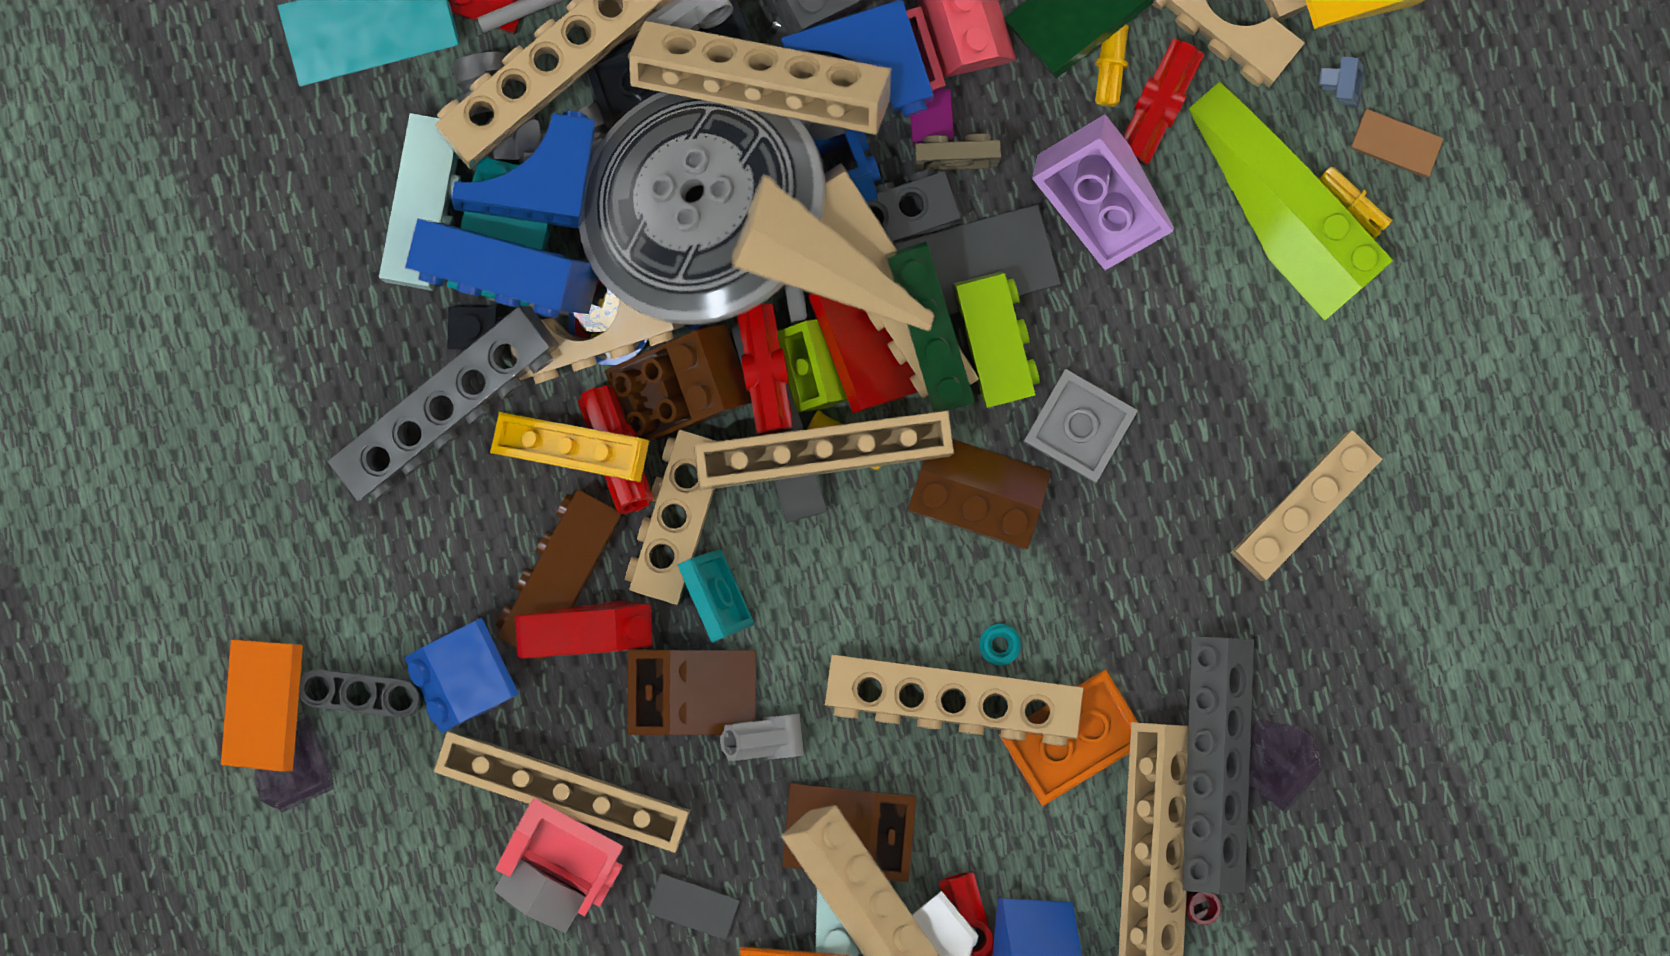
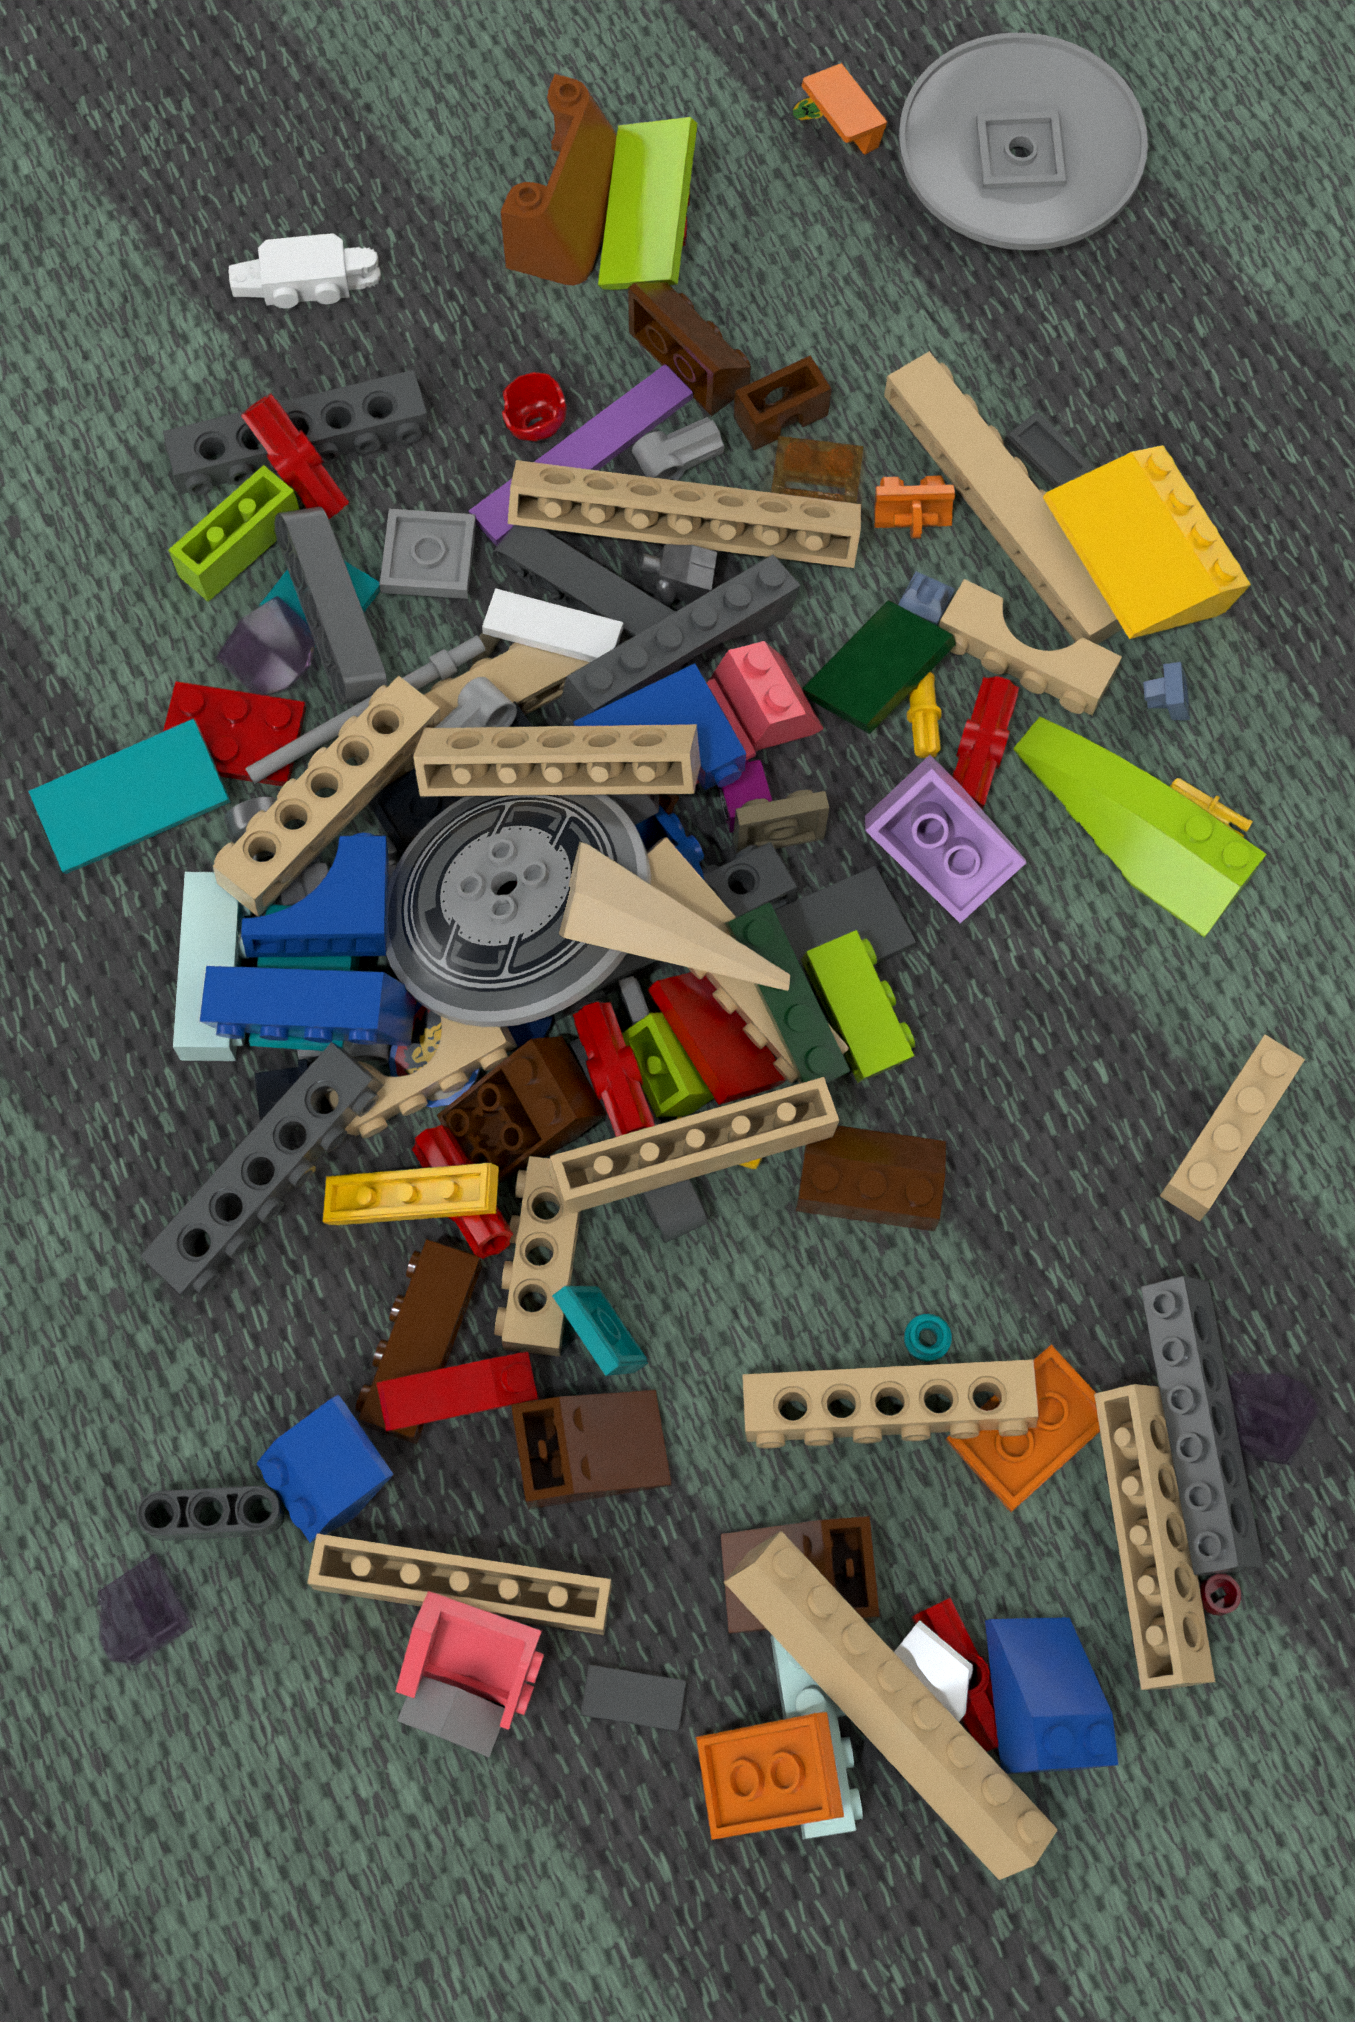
camera: 10 degrees left, 15 degrees down
(261, 705) = (97, 1546): orange tile -> none
(770, 738) = (681, 1484): light grey piece -> none
(1080, 426) = (968, 1086): light grey plate -> none
(1396, 143) = (1238, 747): medium nougat tile -> none

